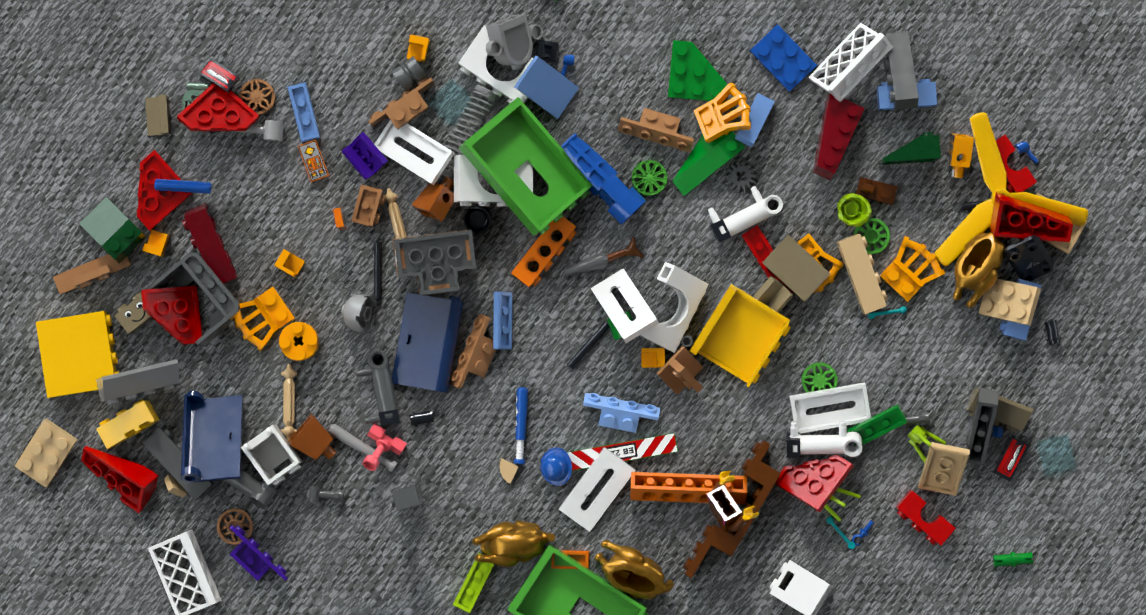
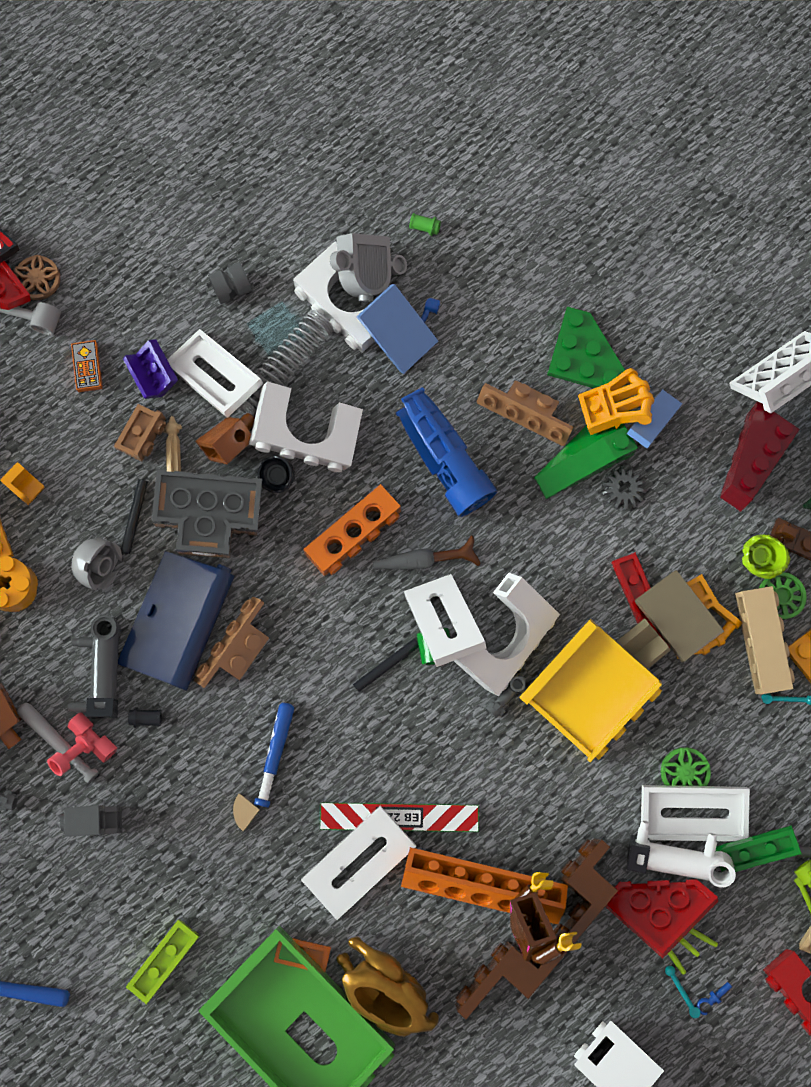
camera: 10 degrees right, 10 degrees down
(303, 112) = (89, 306): medium blue tile -> none
(339, 218) = (98, 438): orange tile -> none
(405, 108) = (215, 321): medium nougat bracket -> none
(418, 48) = (250, 255): light orange panel -> none
(502, 321) = (280, 610): medium blue tile -> none
(508, 143) = (334, 382): bright green panel -> none
(512, 543) = (225, 915): pearl gold piece -> none
(547, 50) = (410, 289): black tile -> none
(556, 466) = (310, 819): blue hat -> none
(620, 413) = (411, 764): light blue bracket -> none
(649, 178) = (506, 466): bright green wheel -> none
(652, 357) = (468, 697): light orange panel -> none
(680, 371) = (502, 723): medium nougat bracket -> none
(745, 218) = (596, 547): white piece -> none
(783, 58) = (701, 354): blue plate -> none

